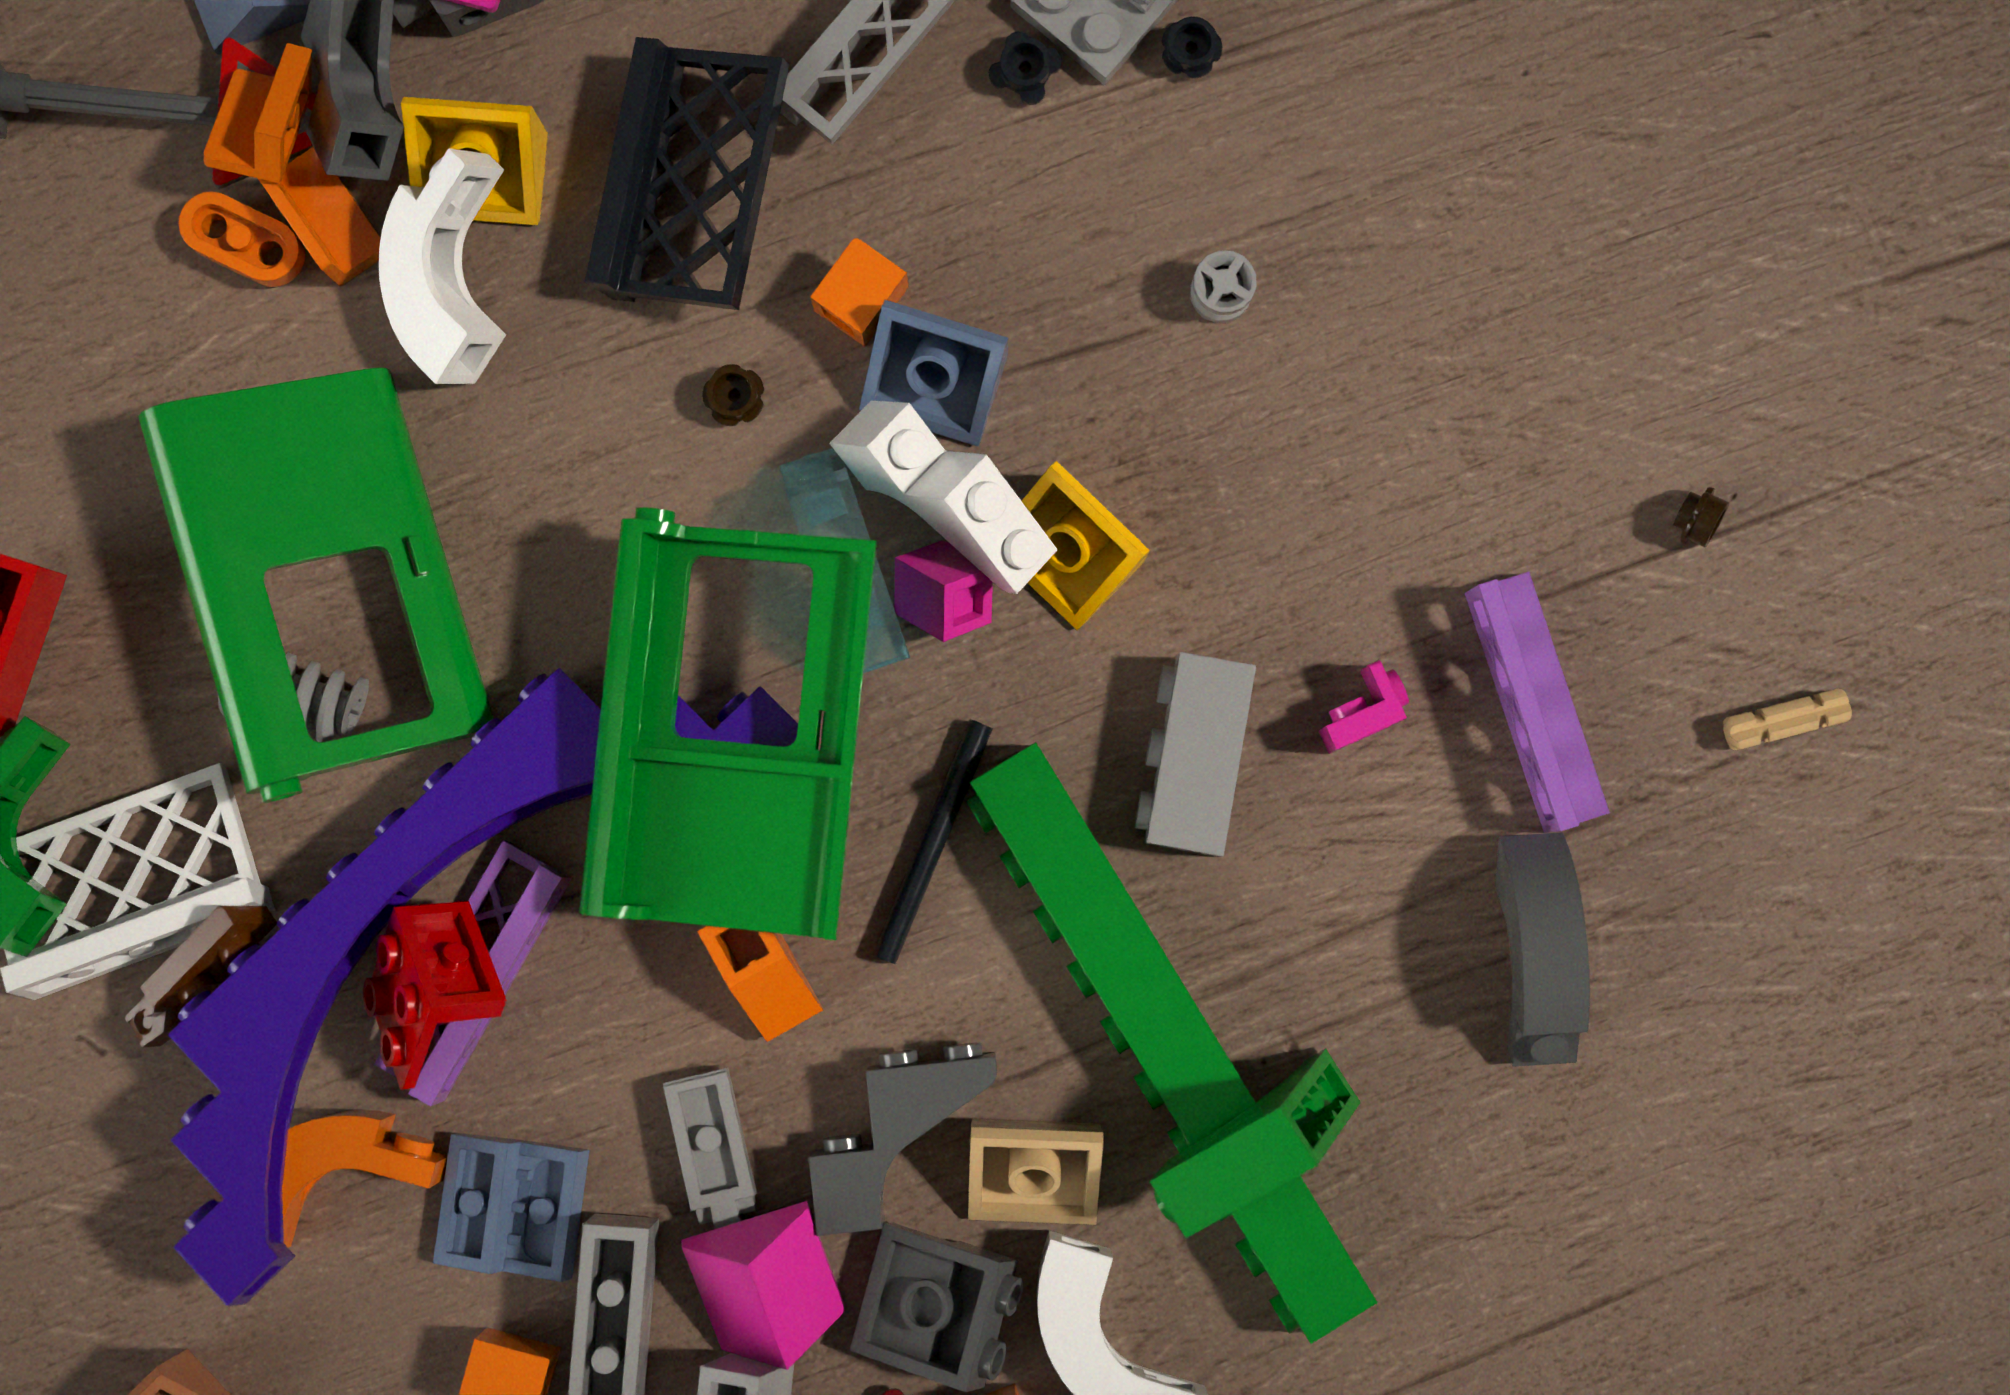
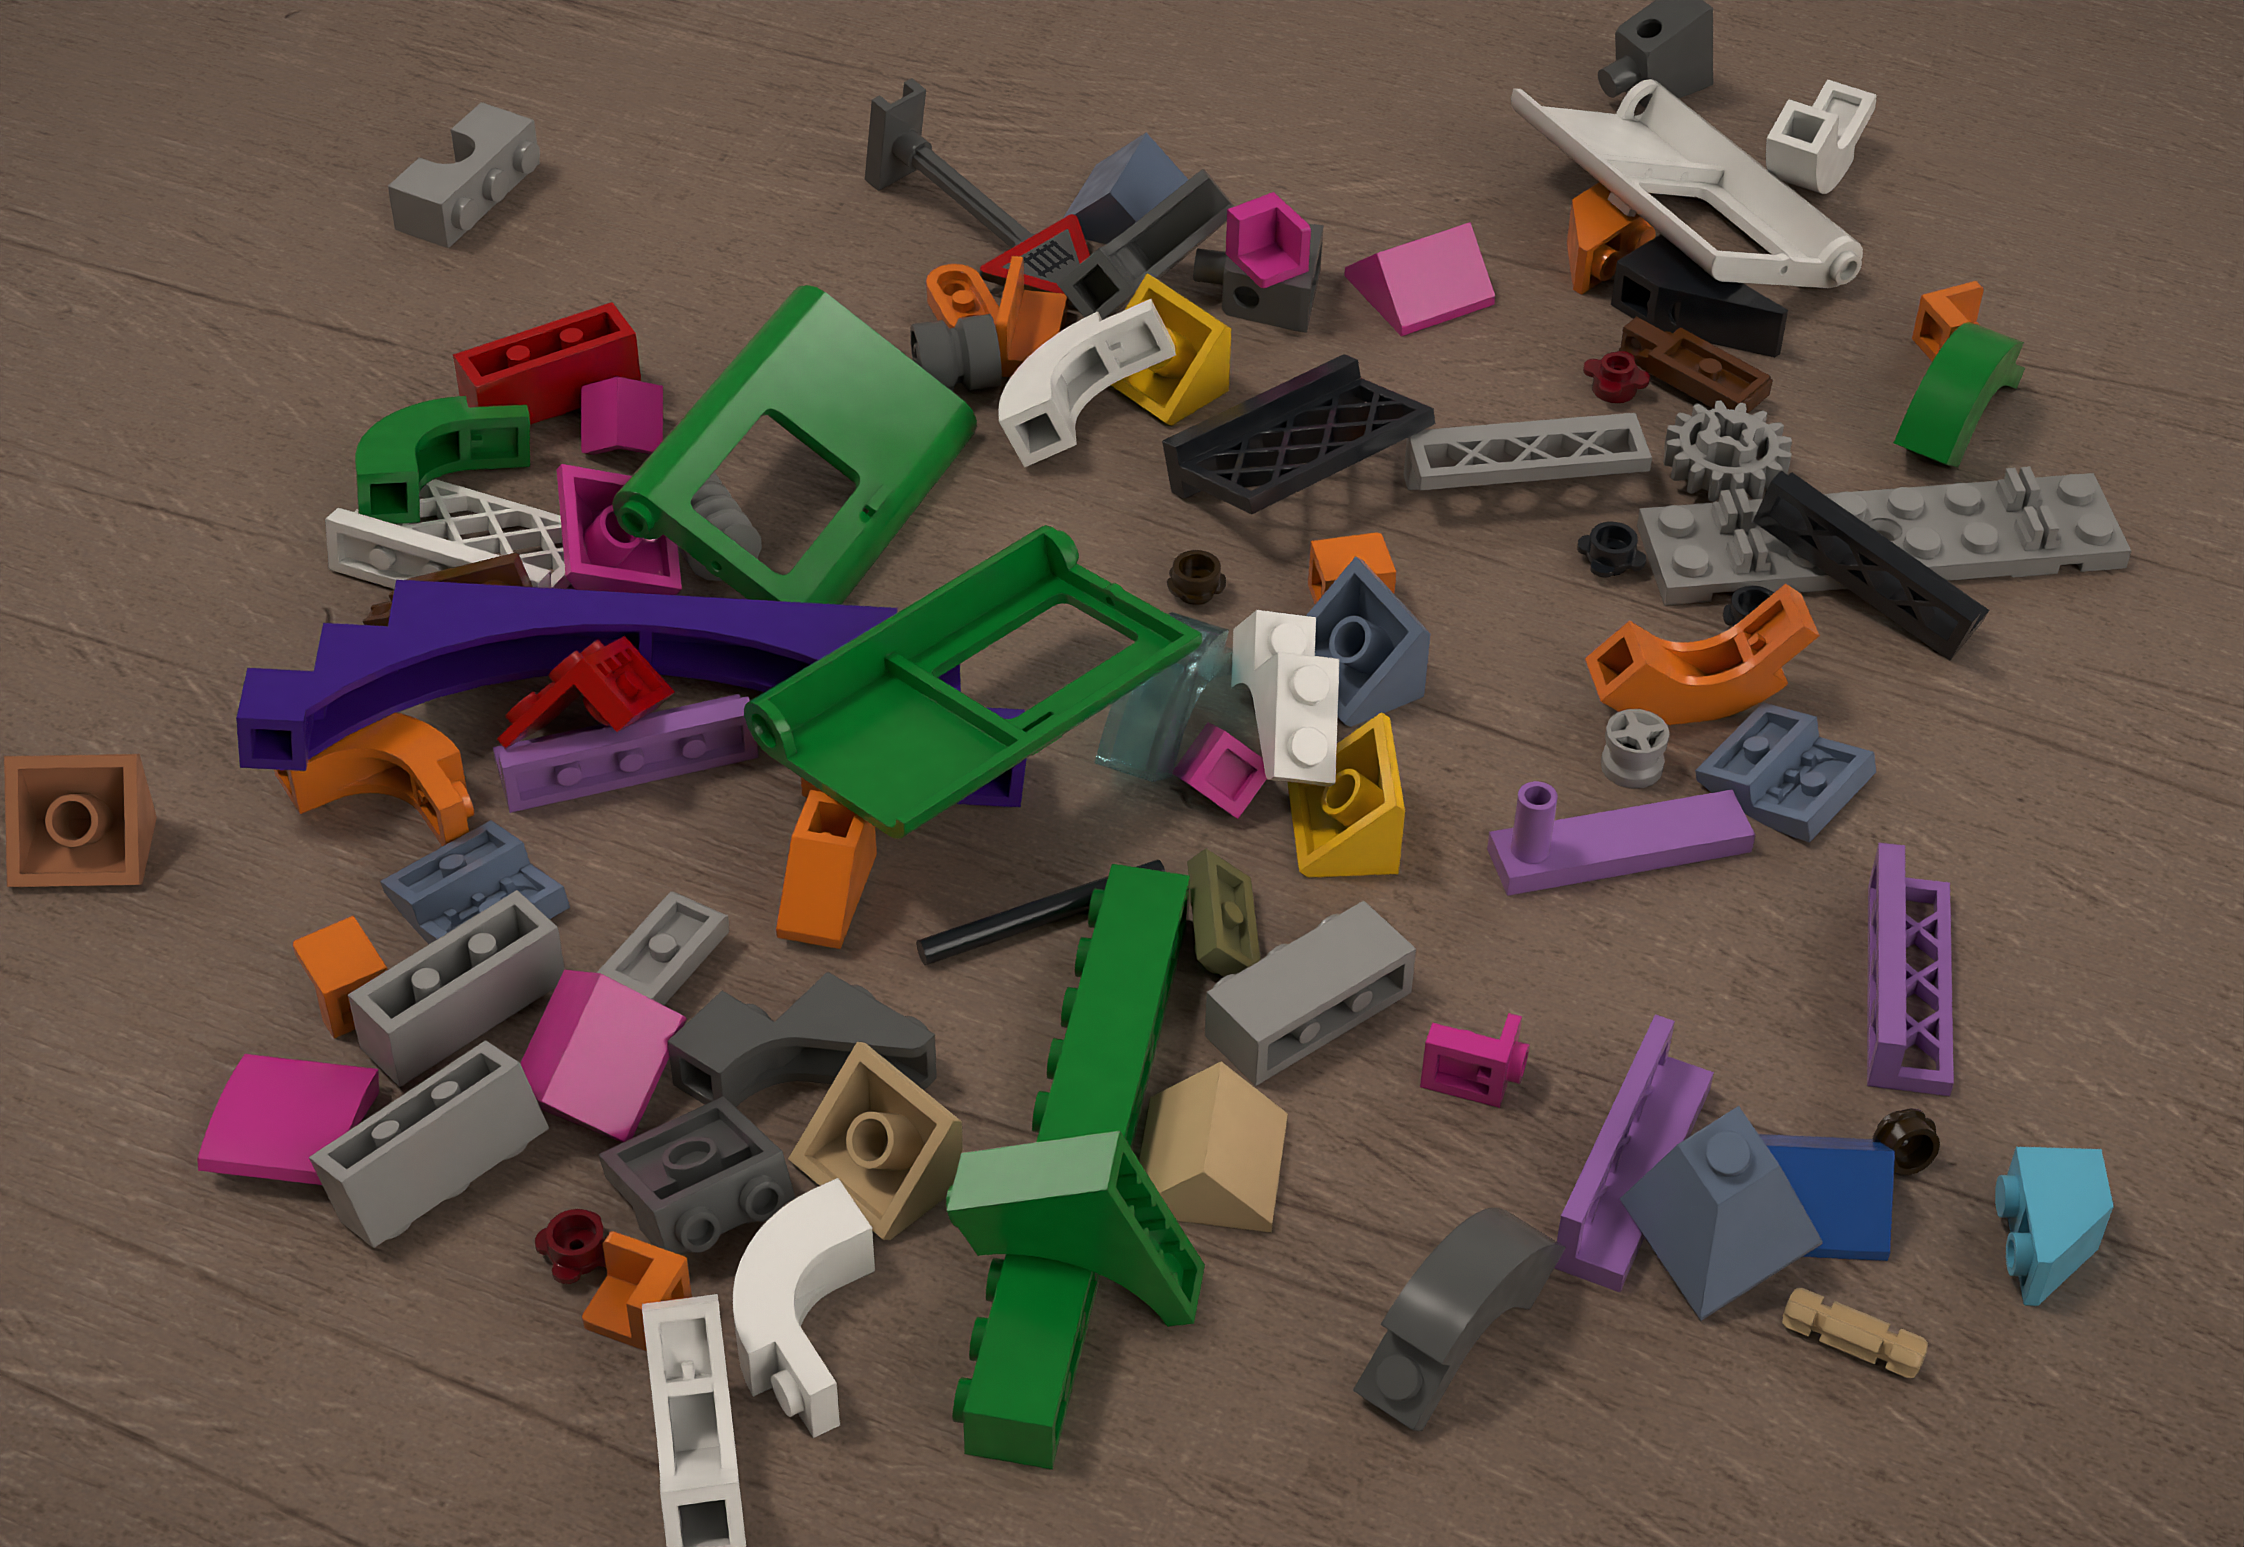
camera: 45 degrees right, 40 degrees down
(101, 637) = (621, 416): none -> dark pink panel
(259, 833) = (599, 550): none -> dark pink slope
(262, 118) = (1053, 239): orange panel -> none
(305, 317) = (959, 354): none -> dark grey wheel
(1077, 740) = (1222, 915): none -> olive plate
(1217, 159) = (1704, 676): none -> orange arch
(1252, 958) = (1215, 1150): none -> tan slope
(1282, 389) = (1615, 842): none -> medium lavender piece
(1344, 204) = (1787, 771): none -> sand blue slope
(1575, 356) = (1893, 980): none -> medium lavender fence
(1648, 719) = (1720, 1214): none -> sand blue slope
(1670, 613) = (1843, 1191): none -> blue slope
(1854, 505) = (2055, 1214): none -> medium azure slope

